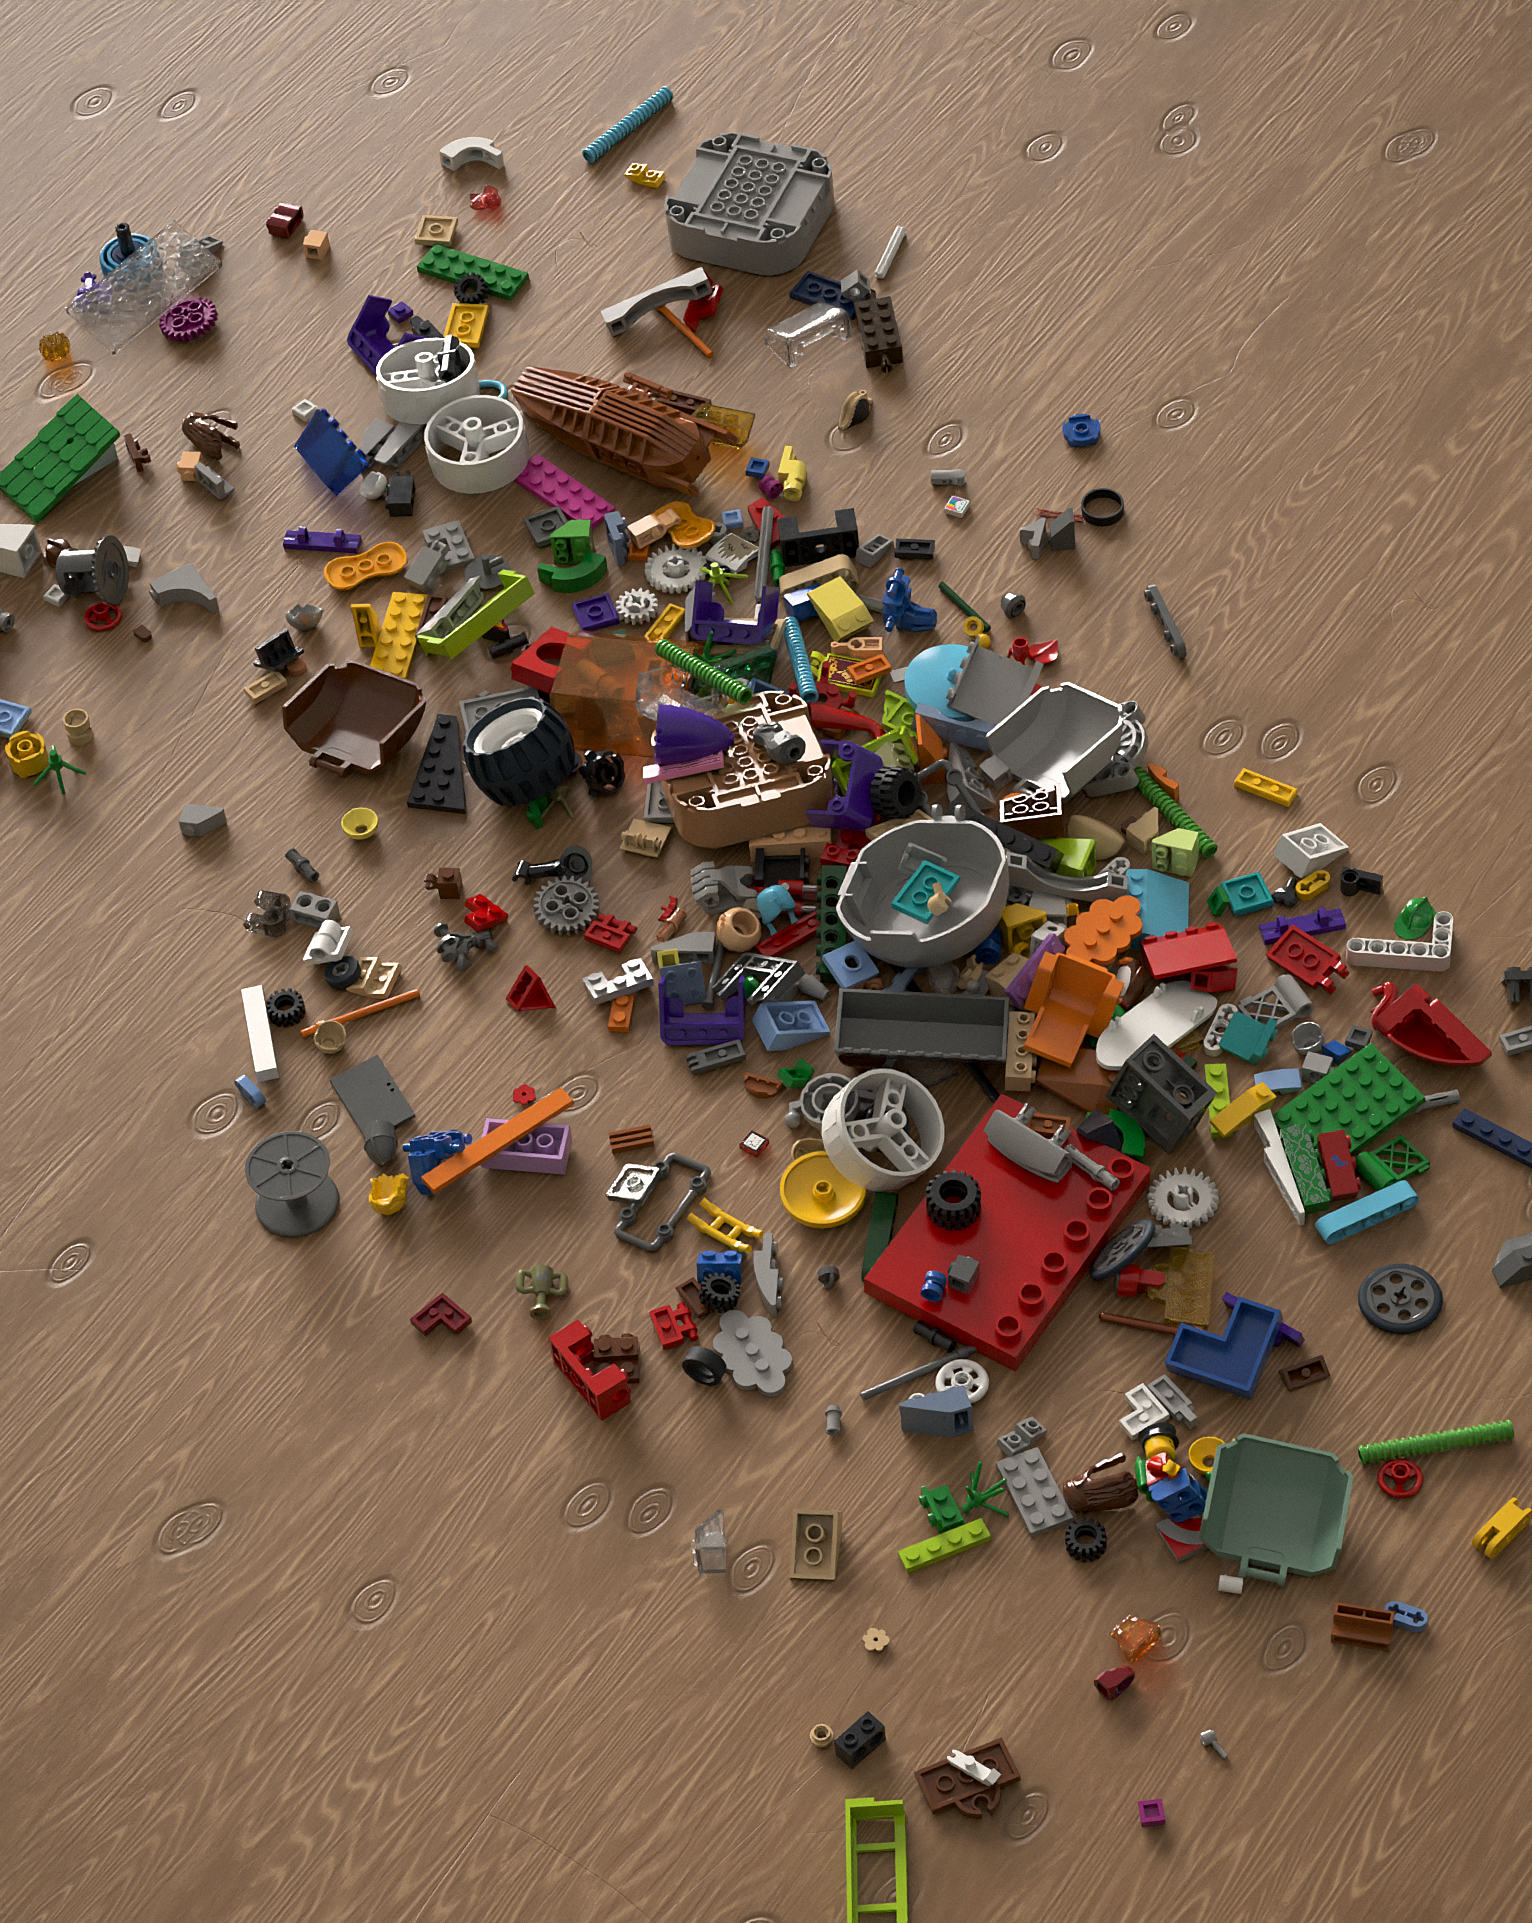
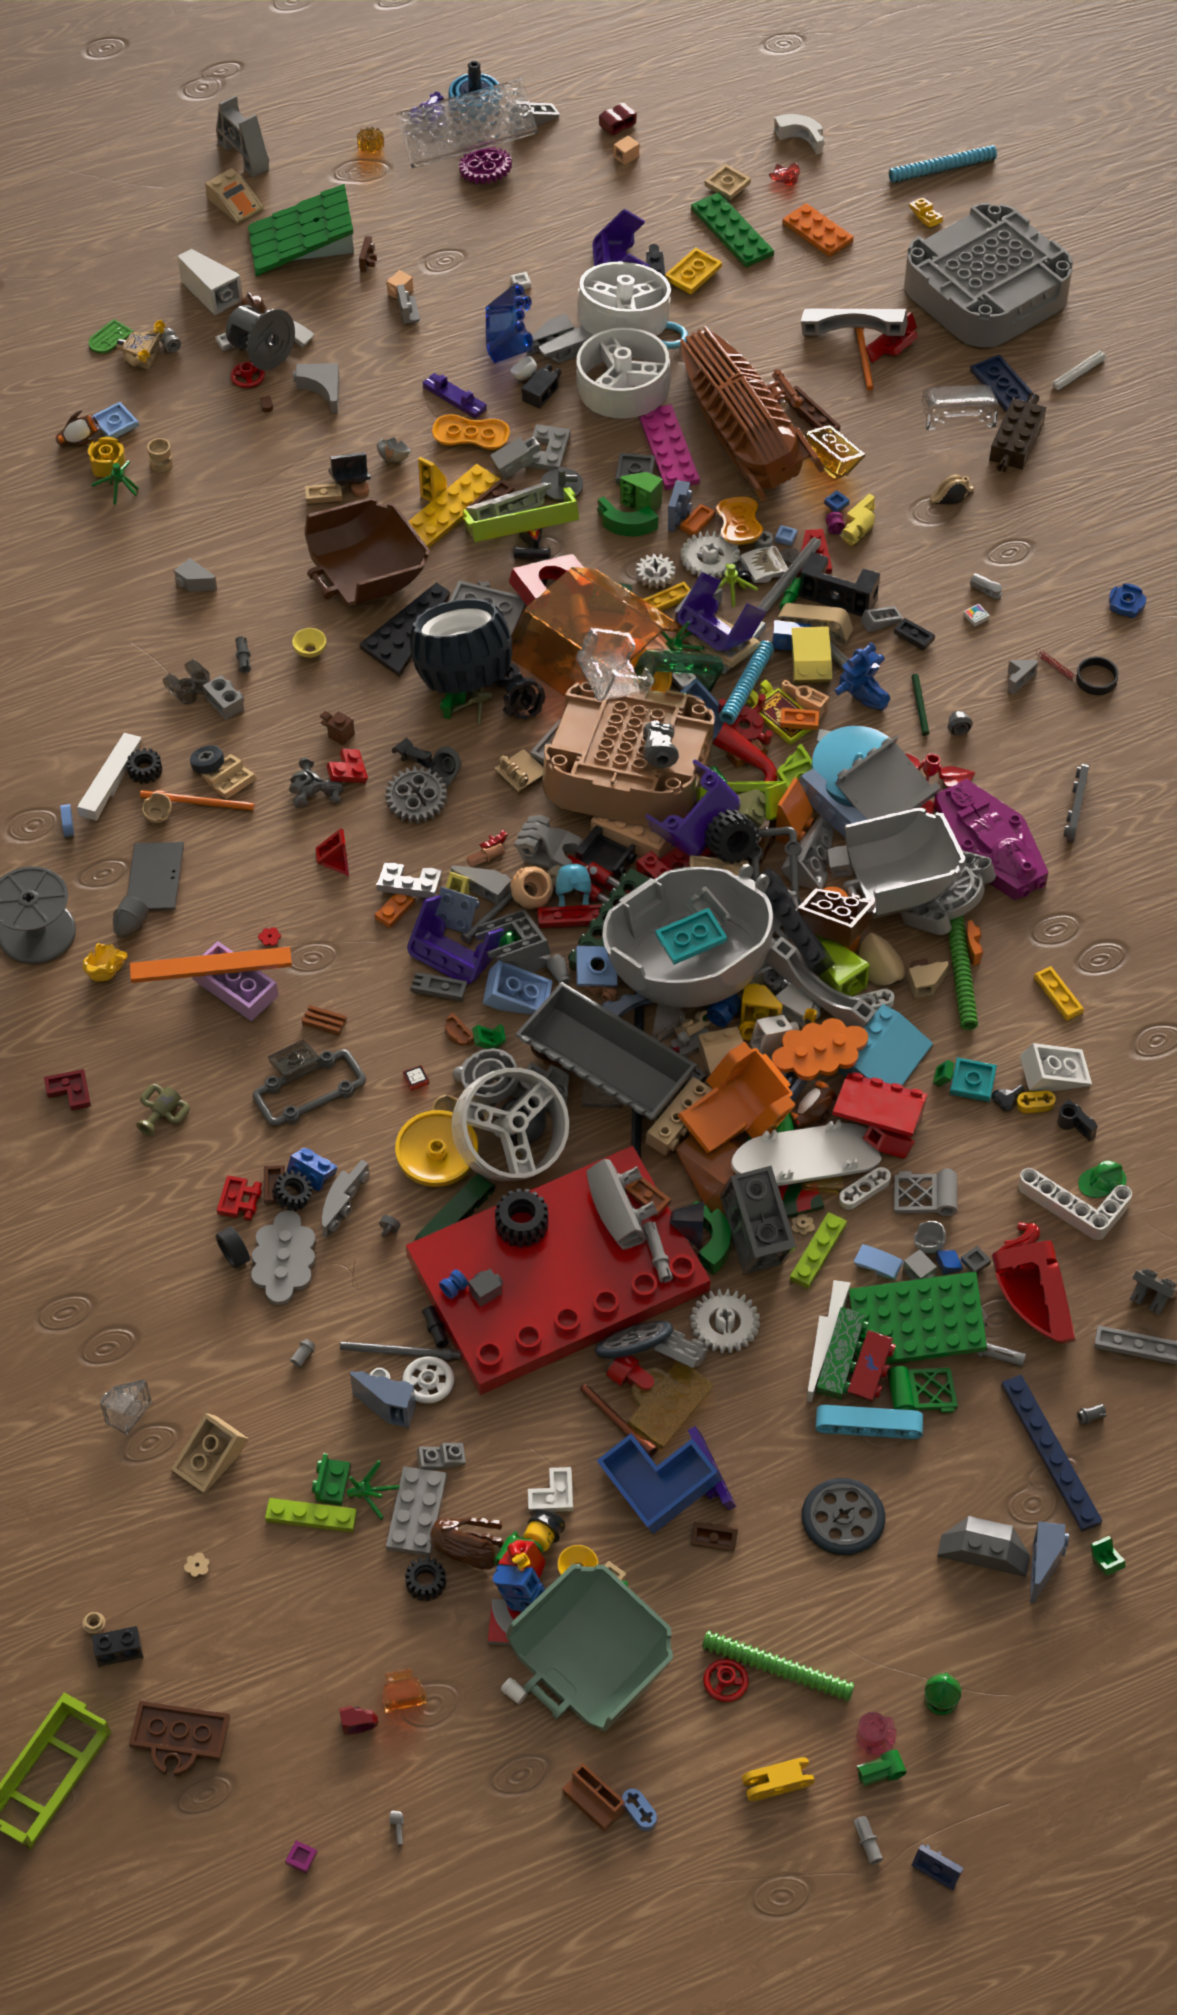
camera: 25 degrees right, 5 degrees up
(206, 436) = (423, 260): reddish brown hair -> none
(328, 943) = (211, 729): white plate -> none
(400, 312) = (651, 236): dark purple plate -> none
(429, 1151) = (160, 943): blue piece -> none
(449, 359) = (647, 292): black piece -> none
(465, 283) = (714, 236): black tyre -> none
(554, 236) = (818, 230): none -> orange plate
(595, 613) = (620, 560): dark purple tile -> none
(603, 1392) = (142, 1224): red plate -> none
(607, 936) = (430, 838): red plate -> none
(619, 1350) = (174, 1202): reddish brown plate -> none
(652, 527) = (712, 510): light nougat piece -> none
(665, 772) = (572, 726): bright pink tile -> none
(688, 735) = (589, 700): dark purple cylinder -> none
(703, 672) = (645, 653): bright green piece -> none
(721, 1217) = (343, 1127): yellow piece -> none
(855, 286) = (1024, 385): light grey brick -> none
(938, 903) = (692, 950): tan piece -> none
(973, 1768) = (185, 1727): white piece -> none
(984, 640) = (913, 741): yellow plate -> none
(1021, 985) = (762, 1040): medium lavender plate -> none
(1062, 532) = (1045, 681): dark grey slope -> none
(1119, 680) = (997, 832): none -> magenta container
(1173, 1400) = (586, 1497): light grey hinge -> none
(1176, 852) = (936, 1011): yellowish green slope -> none
(1242, 1109) = (827, 1270): yellow slope -> none
(1248, 1037) = (879, 1208): teal bracket -> none
(1307, 959) = (981, 1165): red tile -> none
(1329, 921) = (1001, 1133): dark purple hinge -> none

